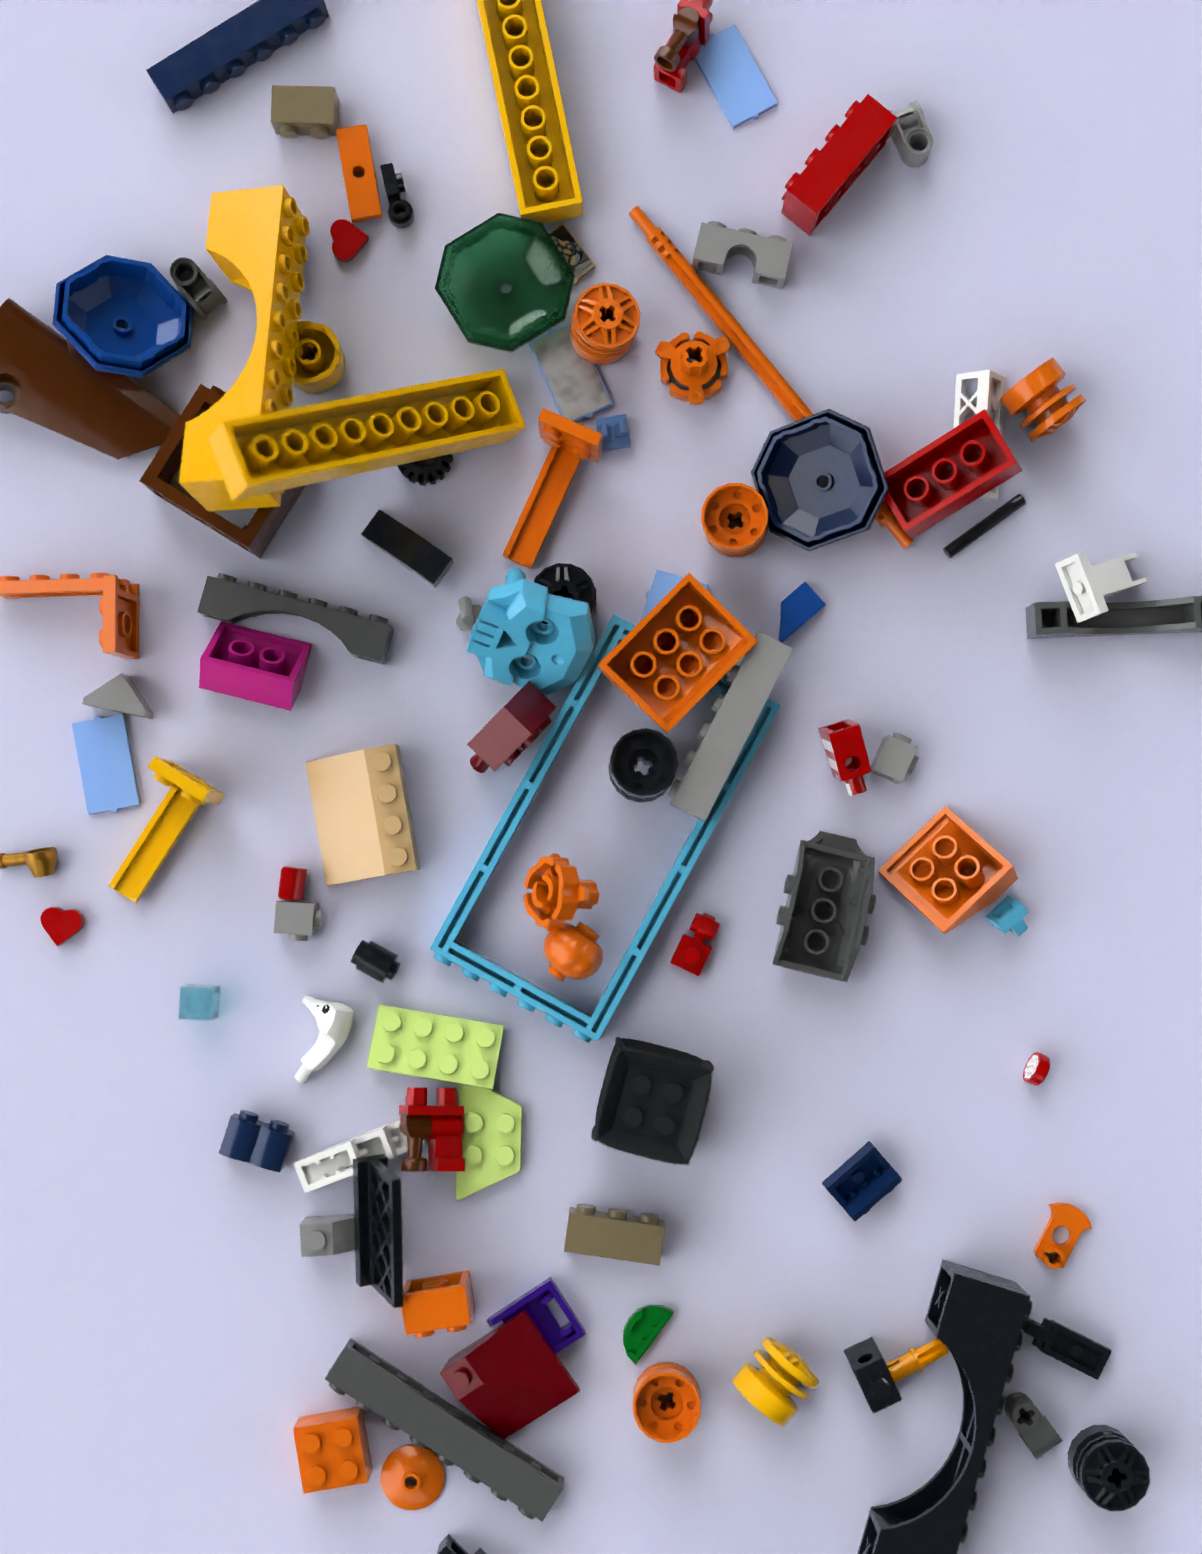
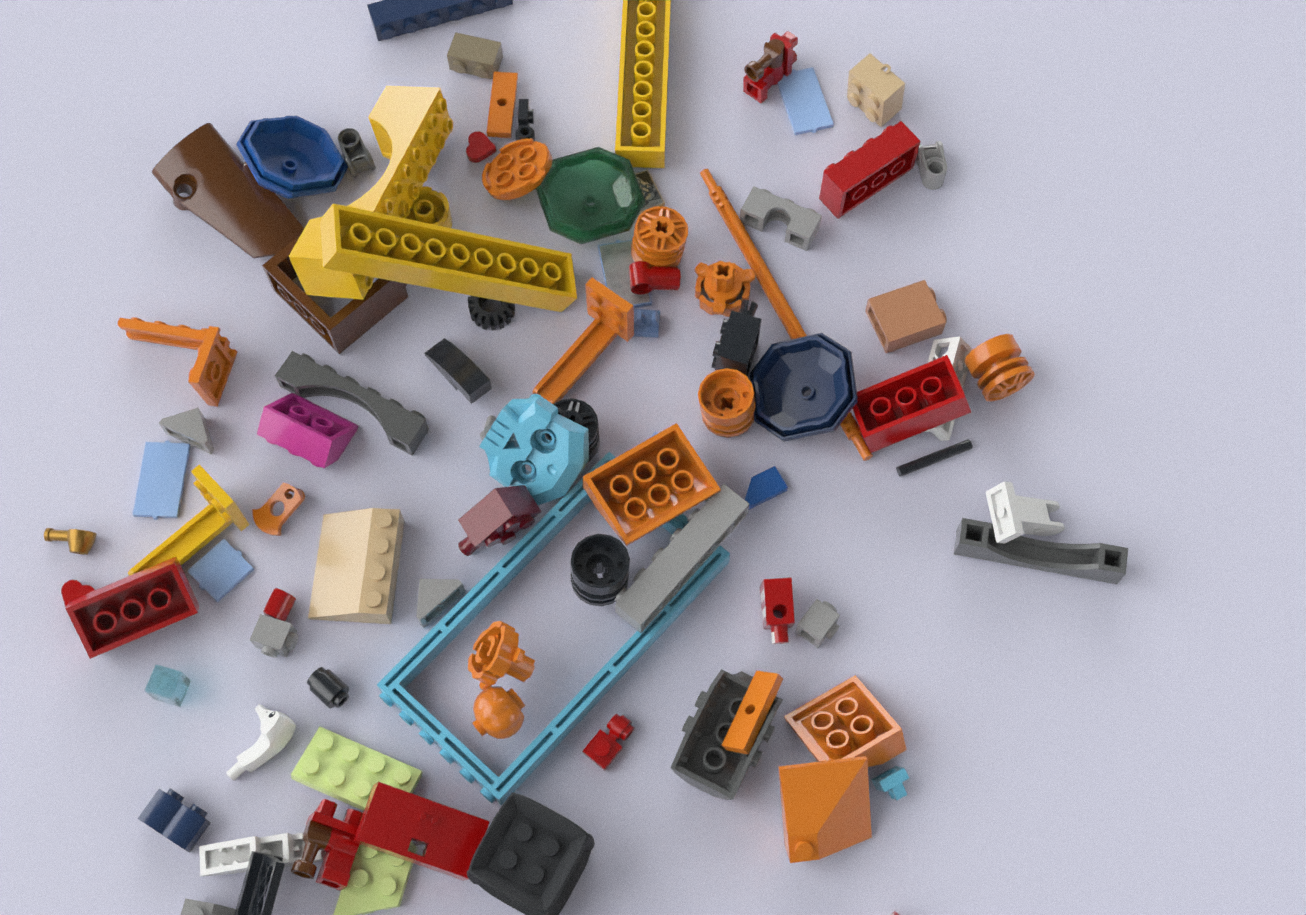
camera: 15 degrees right, 20 degrees down
(131, 928) = (132, 607): none -> red brick
(210, 854) = (220, 570): none -> light blue piece
(240, 782) = (267, 520): none -> orange piece
(405, 265) = (517, 169): none -> orange tile
(461, 831) = (435, 597): none -> light grey slope
(525, 1096) = (420, 830): none -> red brick
(601, 376) = (647, 278): none -> red piece
(731, 440) = (738, 340): none -> black brick
(823, 49) = (874, 90): none -> tan brick
(846, 900) = (752, 712): none -> orange tile
(919, 352) = (906, 316): none -> nougat brick
(945, 968) = (824, 807): none -> orange slope

